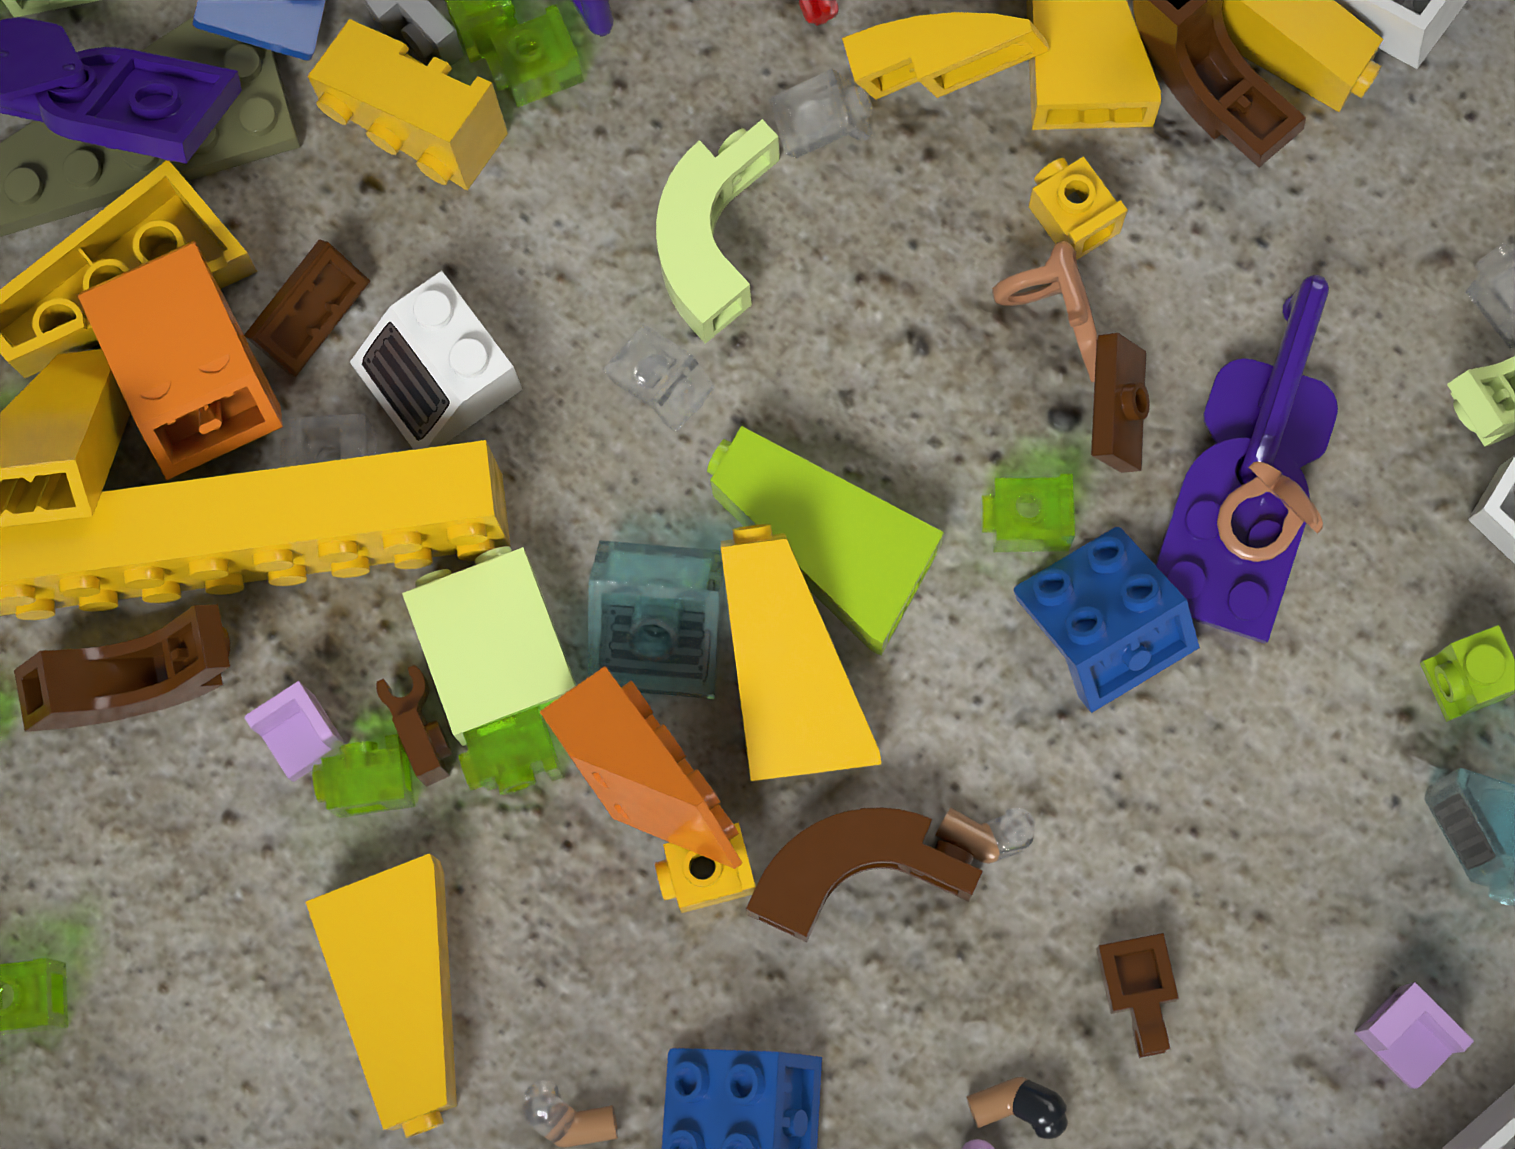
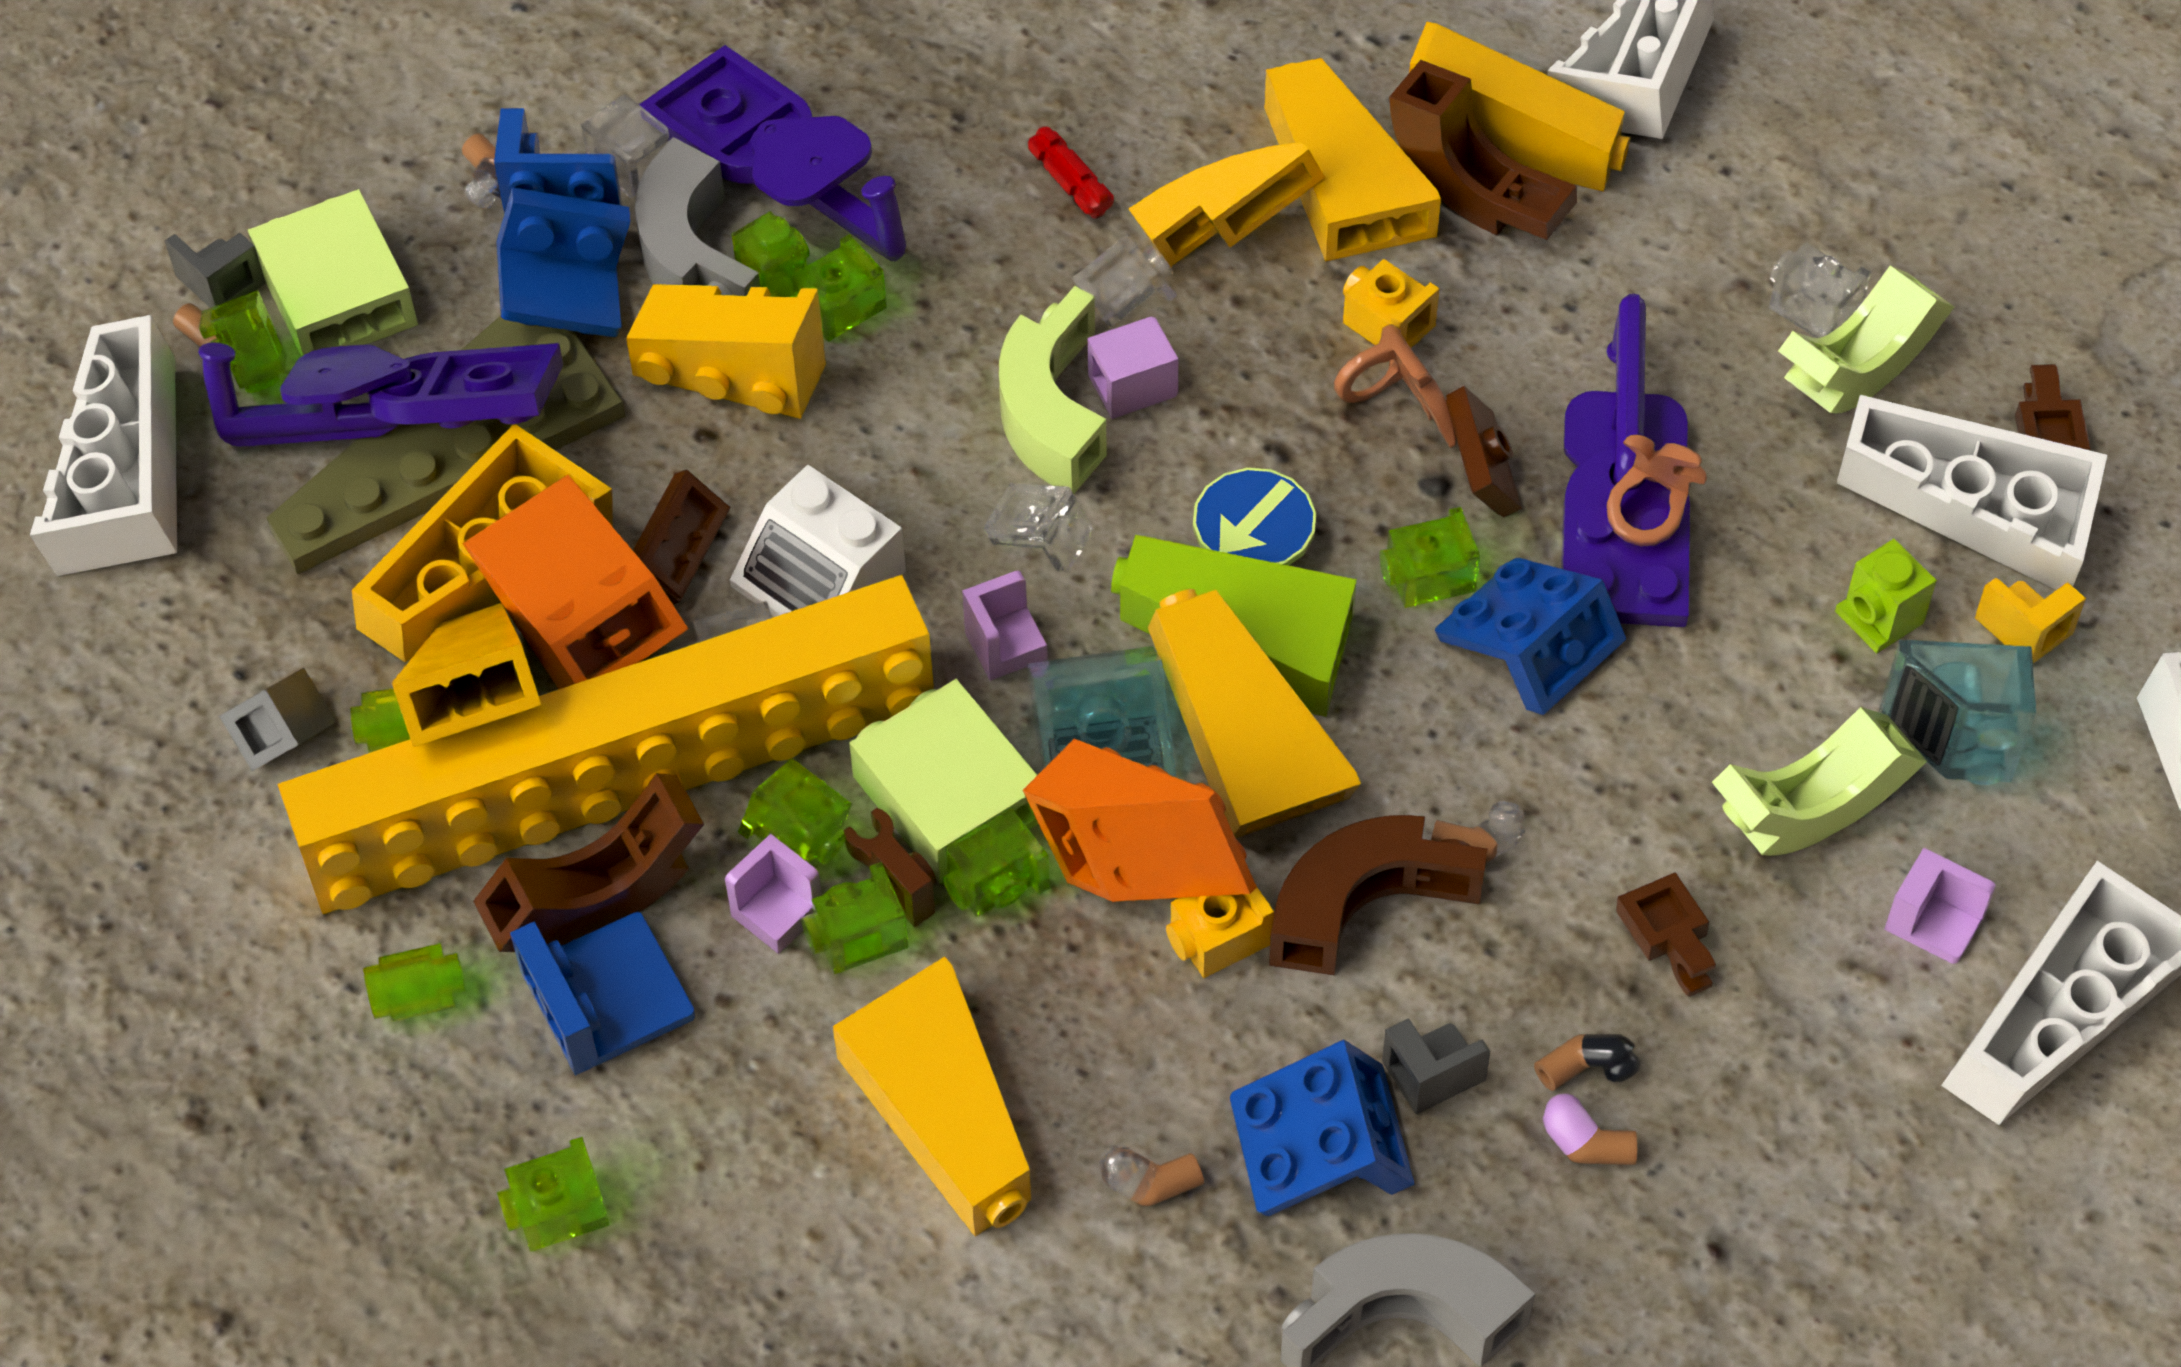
camera: 20 degrees left, 20 degrees down
(110, 790) = (602, 989): none -> blue bracket
(344, 632) = (798, 812): none -> clear neon green brick
(591, 488) = (1002, 625): none -> lavender panel
(799, 218) = (1133, 367): none -> lavender panel
(868, 427) = (1255, 516): none -> blue piece
(871, 1070) = (1434, 1064): none -> dark grey panel
(1335, 877) = (1822, 790): none -> yellowish green arch

